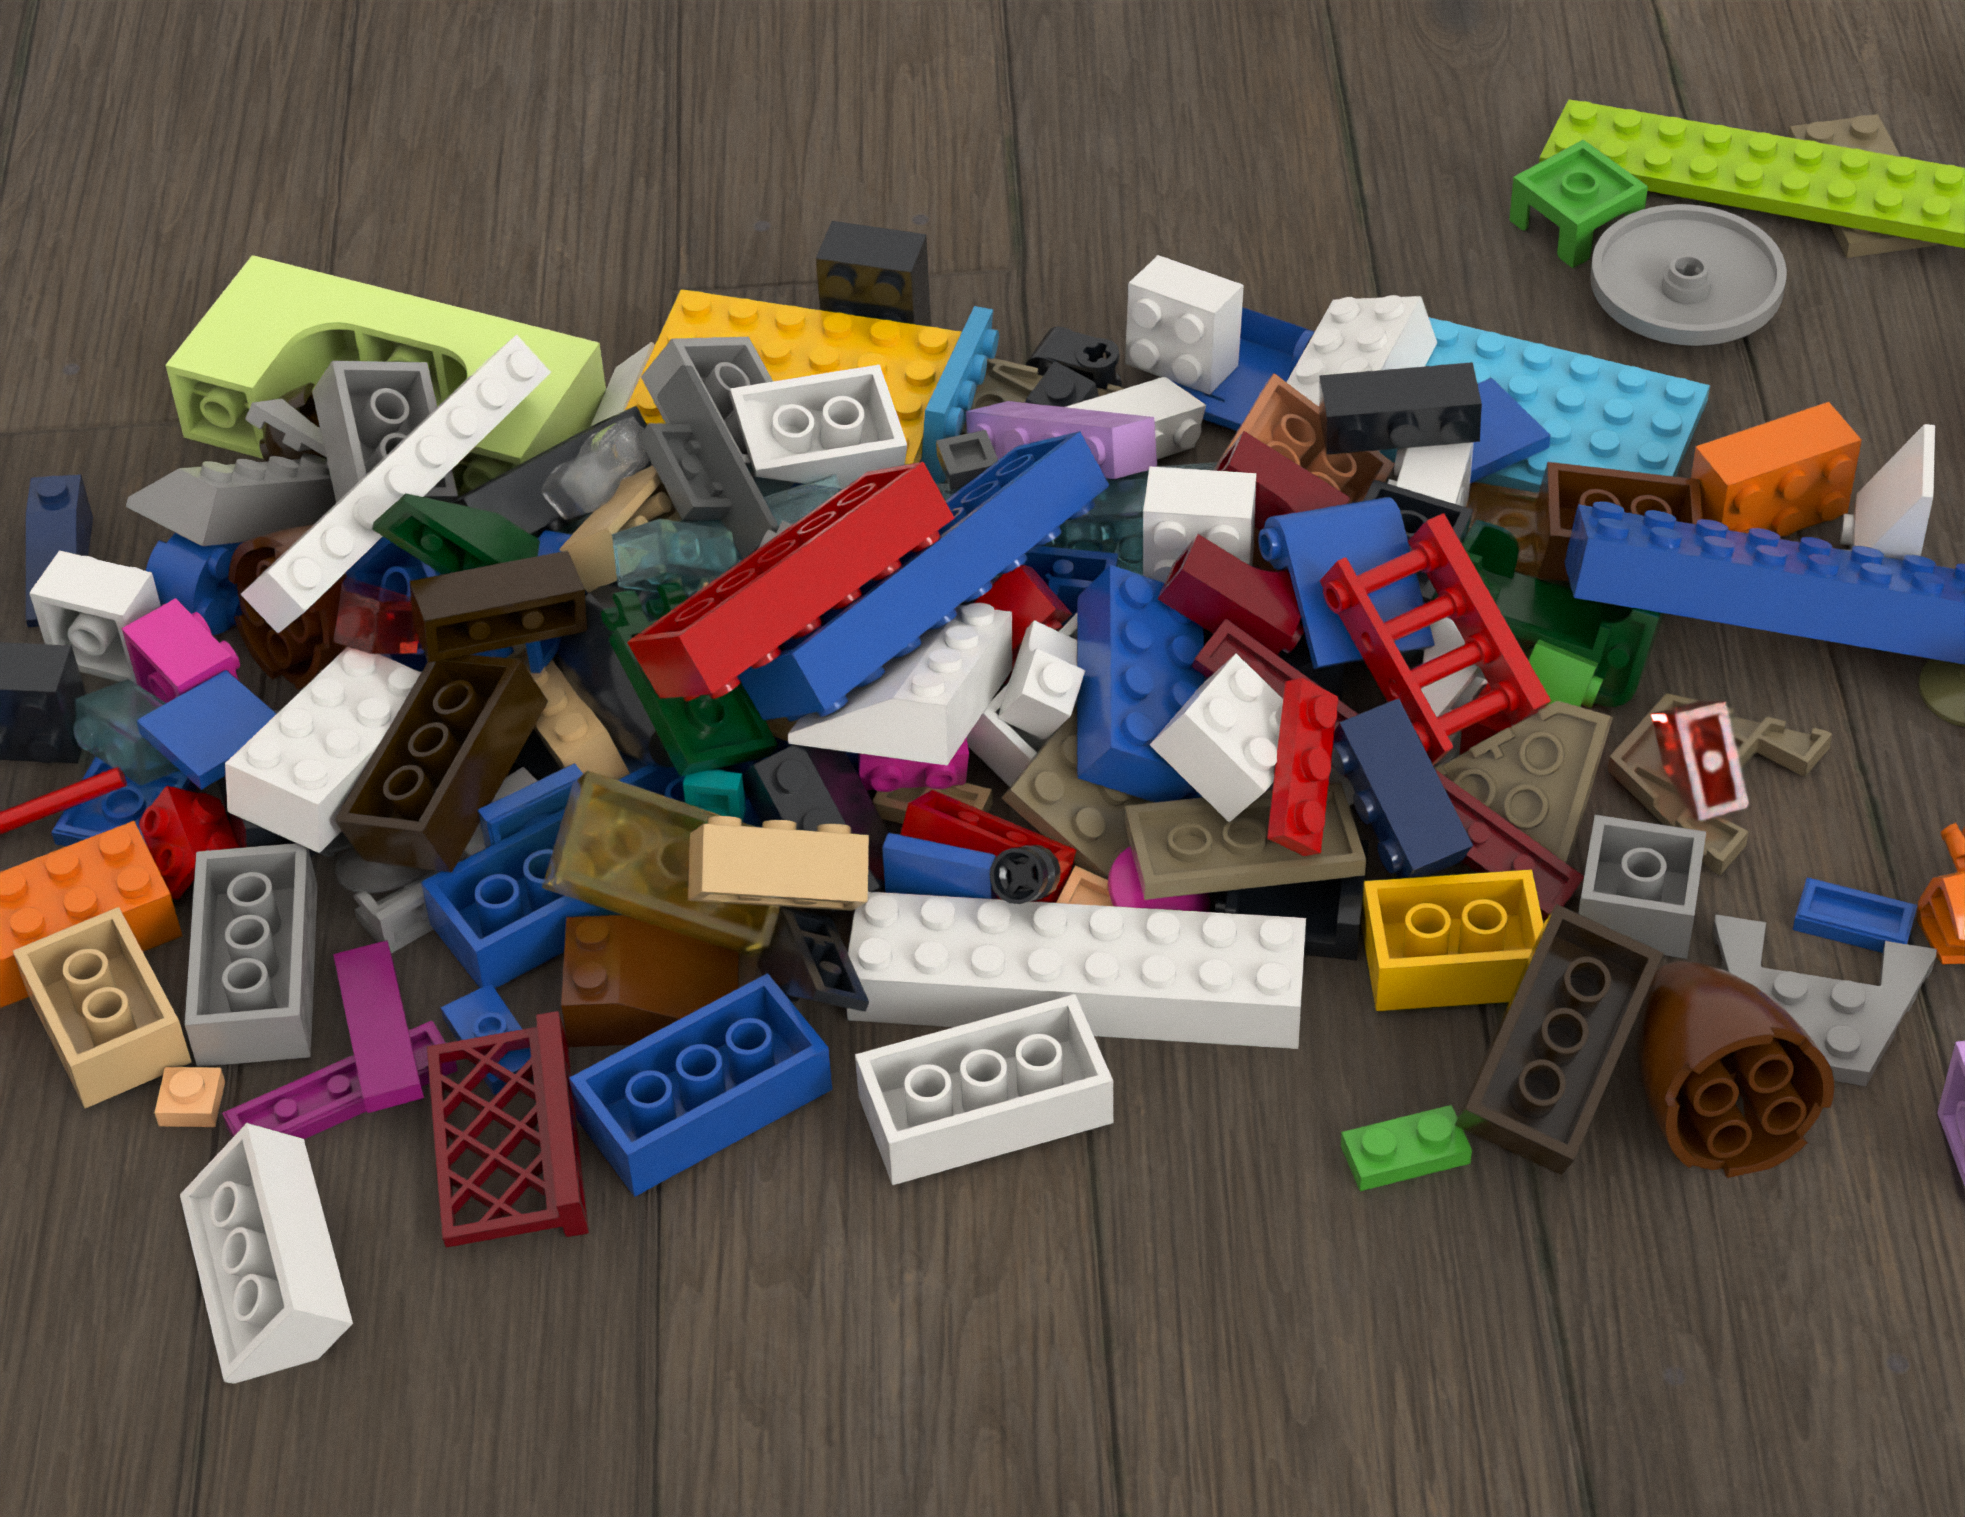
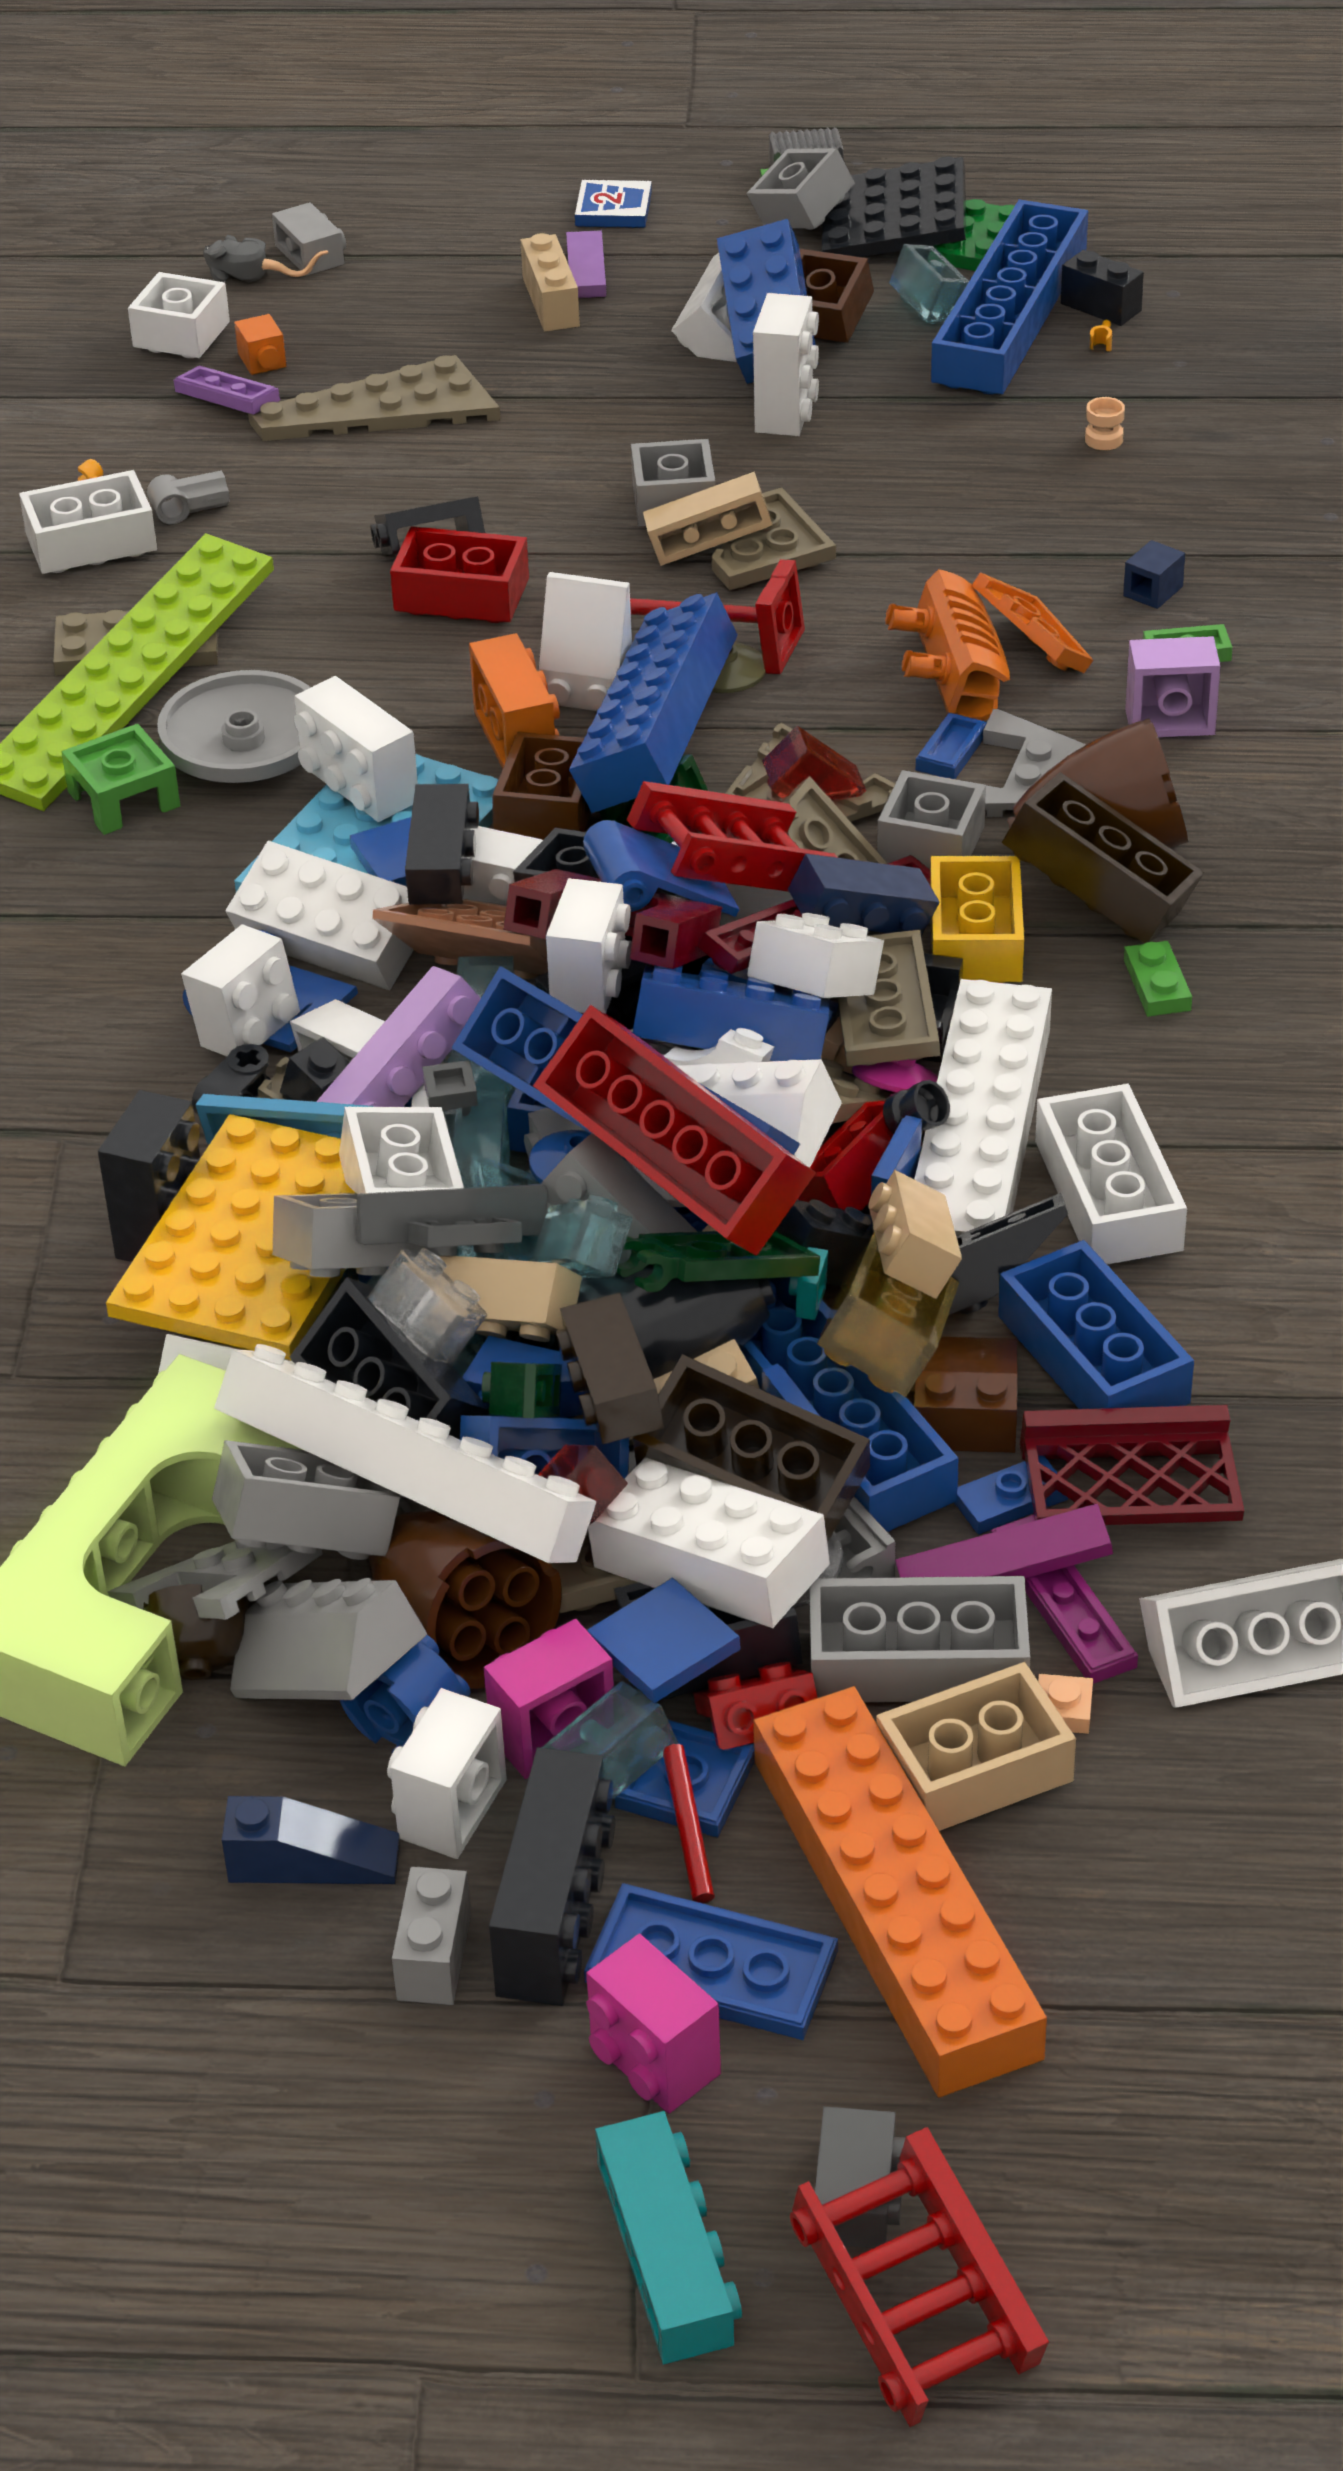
camera: 85 degrees left, 5 degrees down
(1302, 767) = (898, 935): red plate -> none
(1618, 346) = (356, 748): none -> white brick

